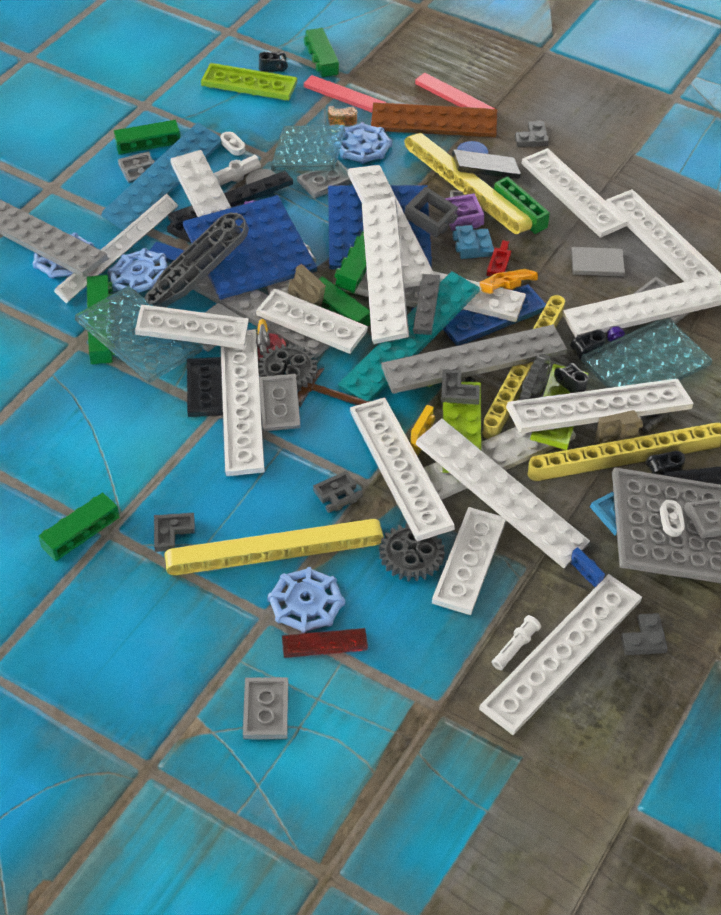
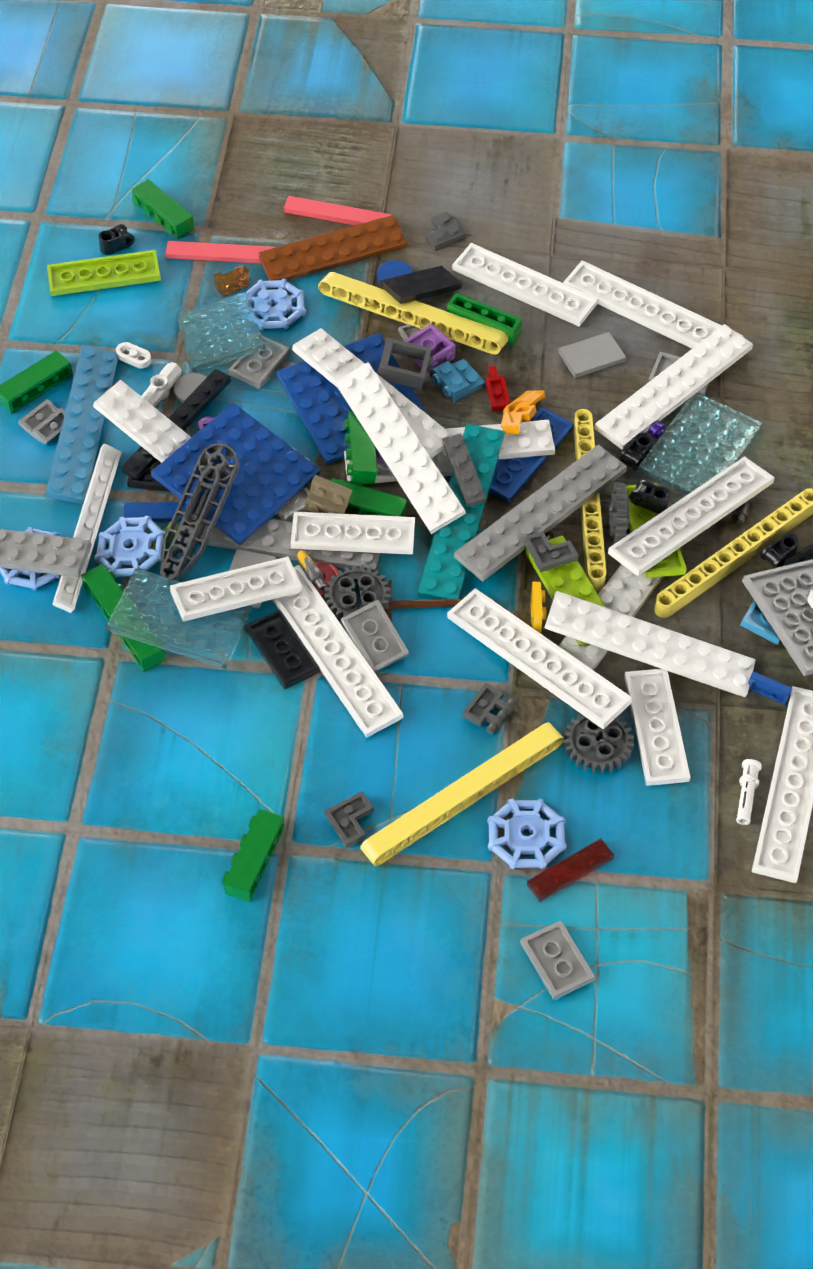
camera: 25 degrees left, 5 degrees up
(618, 427) = (721, 532): dark tan plate -> none

